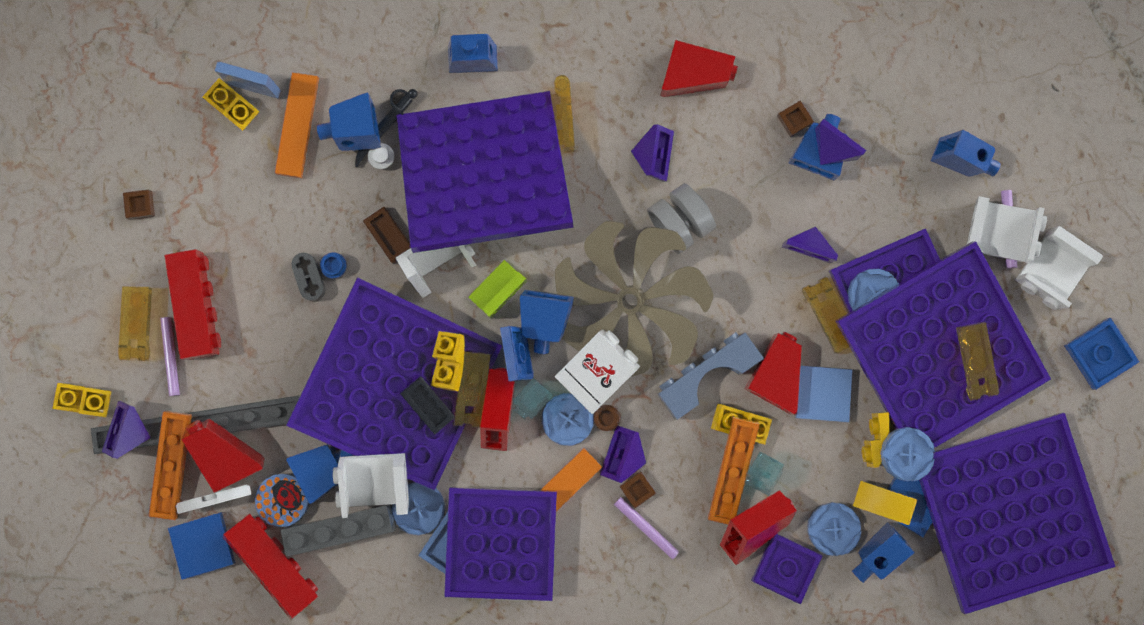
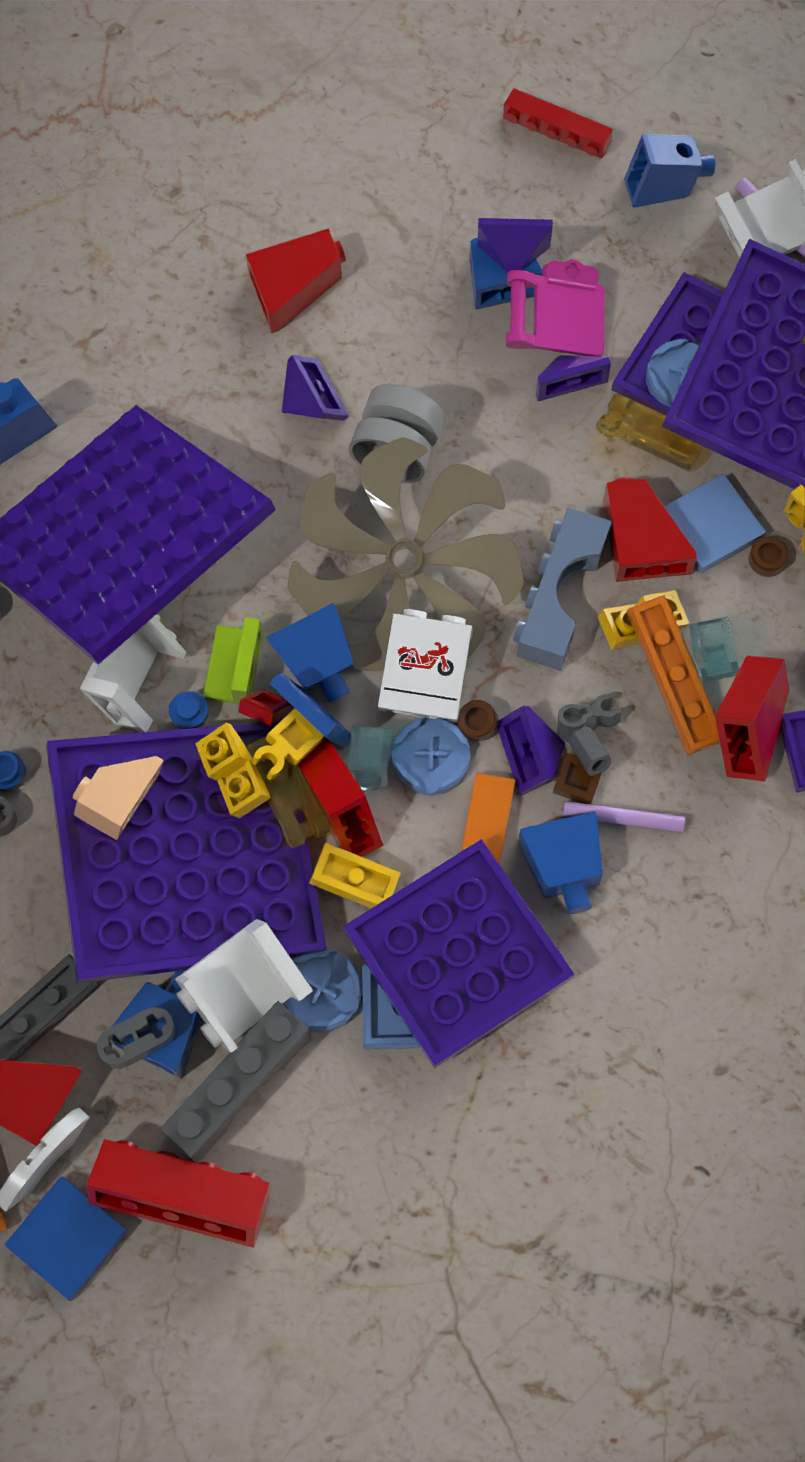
camera: 30 degrees left, 15 degrees down
(281, 500) = (135, 1102): tile -> none
(300, 467) = (131, 1029): none -> dark grey beam
(372, 336) = (115, 794): none -> light nougat slope
(387, 234) = (49, 691): reddish brown tile -> none
(427, 405) = (243, 841): black plate -> none
(454, 300) = (188, 710): none -> blue plate
(476, 461) = (353, 876): none -> yellow plate
(490, 367) = (290, 740): none -> yellow plate
(491, 329) = (265, 707): none -> red tile
(564, 113) = (170, 411): clear yellow plate -> none
(596, 532) = (565, 858): none -> blue torso
(656, 459) = (577, 727): none -> dark grey bar
(795, 118) = (447, 257): reddish brown tile -> none
(837, 205) = (566, 309): none -> dark pink piece
(840, 436) = (768, 556): none -> reddish brown tile
(925, 74) = (557, 123): none -> red piece

